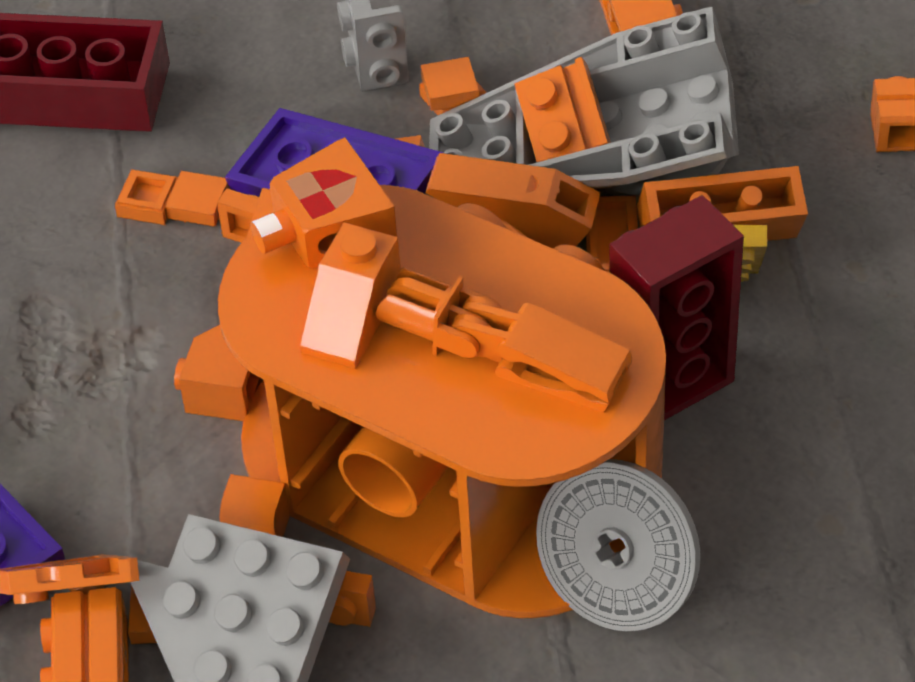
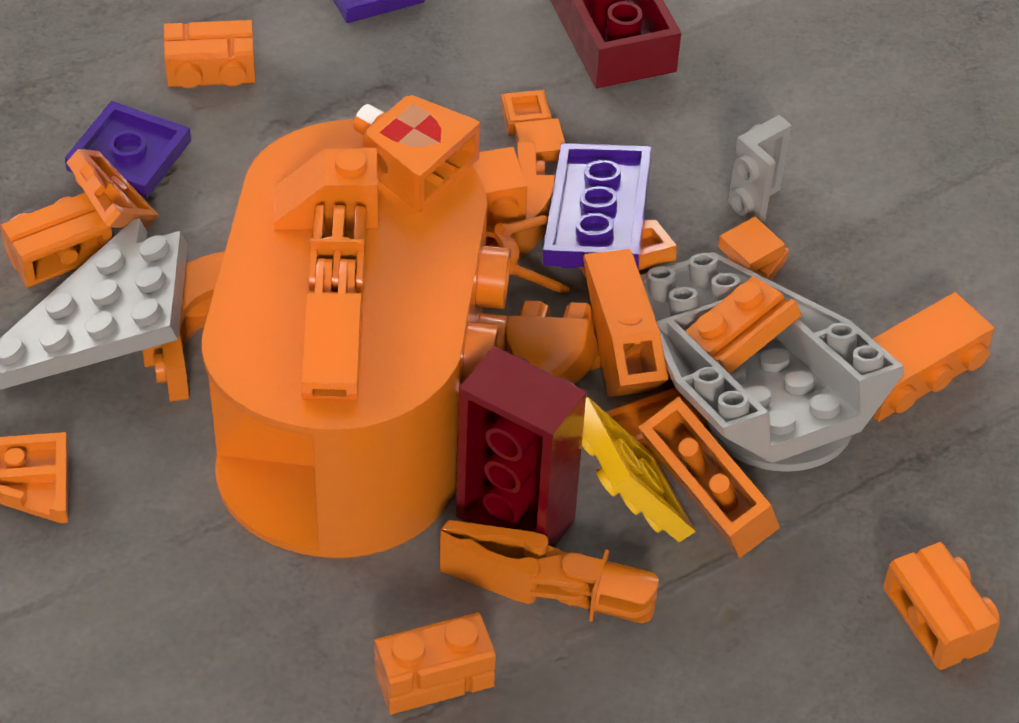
camera: 60 degrees right, 0 degrees up
(633, 585) = (272, 510): light grey piece -> none
(755, 378) = (526, 567): none -> orange arm
(838, 490) = (434, 663): none -> orange brick

